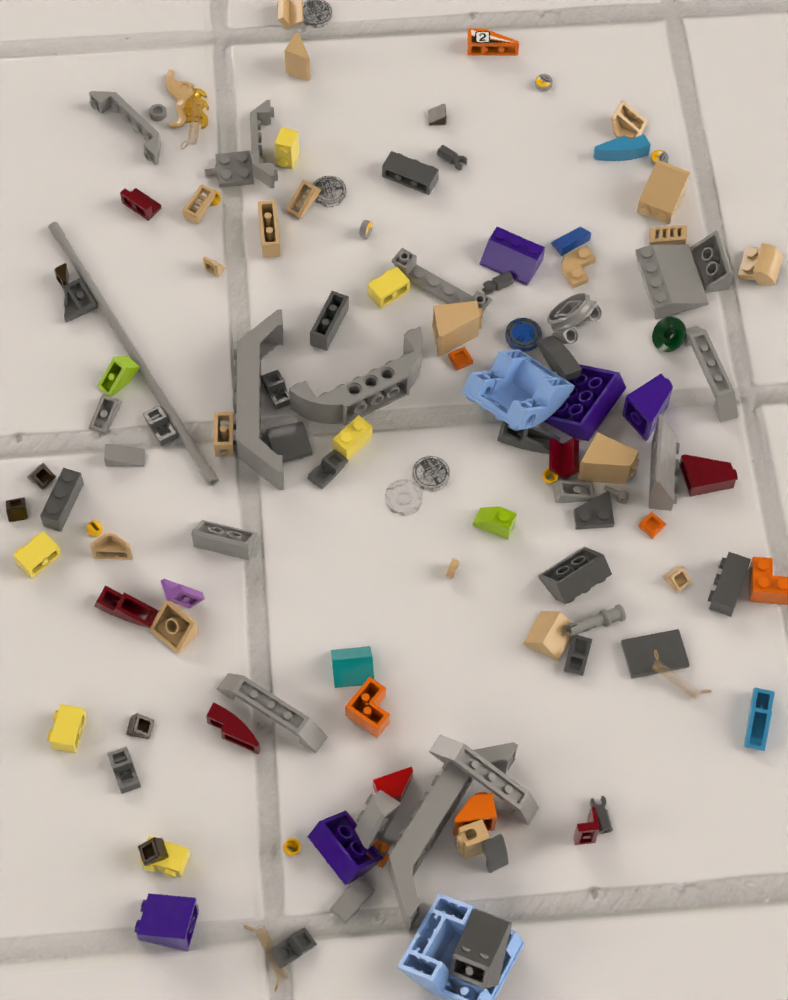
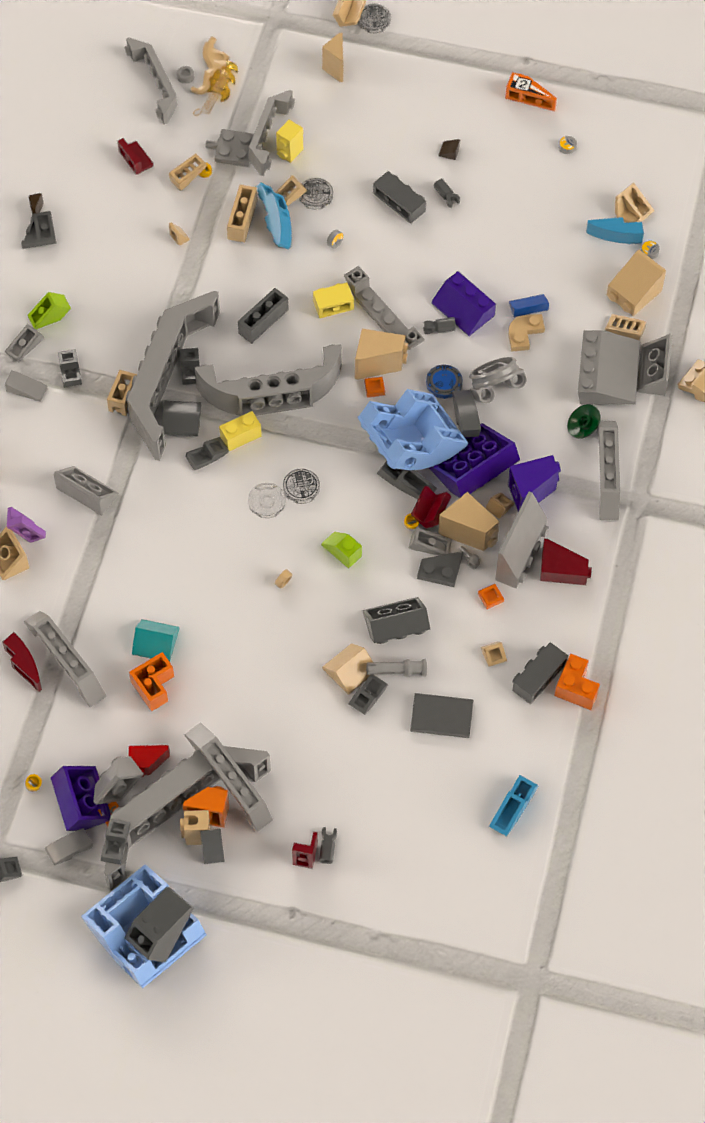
camera: 20 degrees right, 0 degrees up
(206, 470) = (95, 423): light grey piece -> none
(305, 224) = (278, 216): none -> dark azure slope
(405, 880) = (115, 841): none -> dark grey slope
(624, 434) = (499, 505): none -> tan slope
(657, 658) = (452, 745): tan piece -> none

